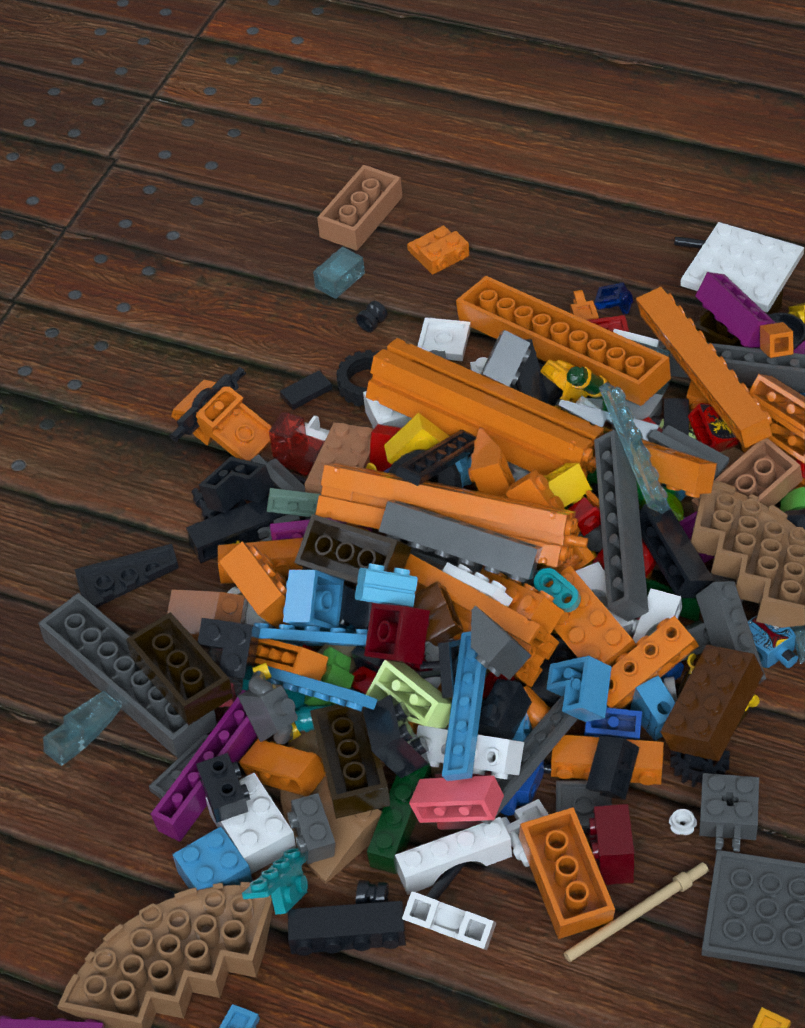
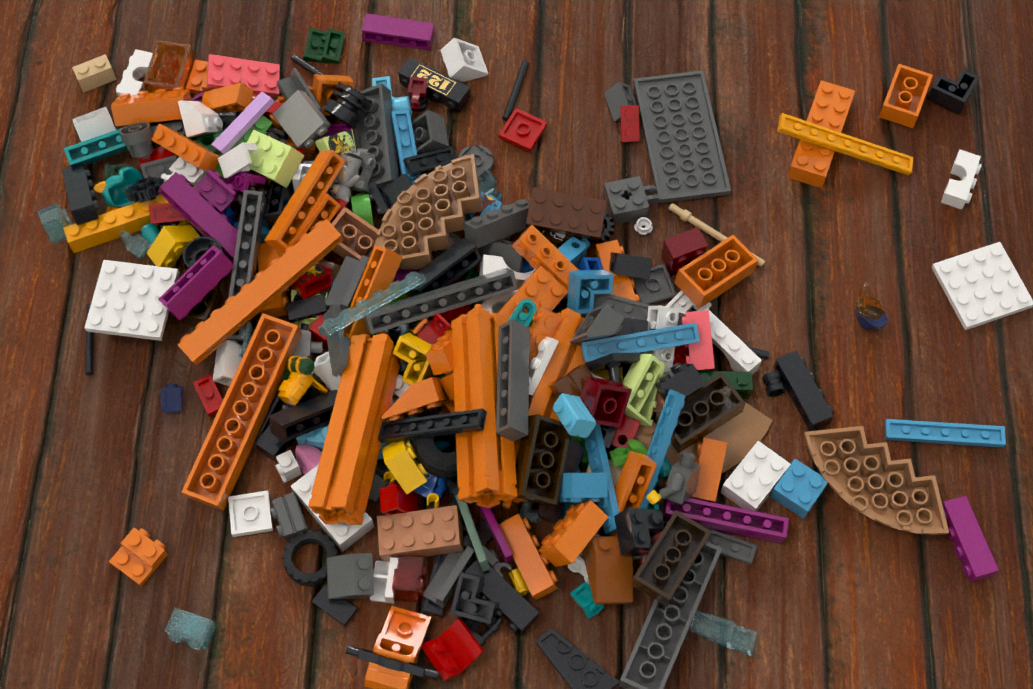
camera: 115 degrees left, 15 degrees up
(195, 462) = (453, 650): none -> red bracket
(222, 787) = (753, 489): black brick -> none
(281, 881) = (792, 435): teal bracket -> none
(312, 828) = (753, 426): dark grey brick -> none
(324, 398) = (350, 576): none -> dark grey slope
(360, 207) = (105, 637): nougat brick -> none
(369, 318) = (238, 580): black wheel -> none
(449, 920) = (774, 315): white arch -> none
(506, 358) = (308, 418): brick -> none
(583, 308) = (191, 415): orange plate -> none
(776, 339) = (231, 240): orange brick -> none

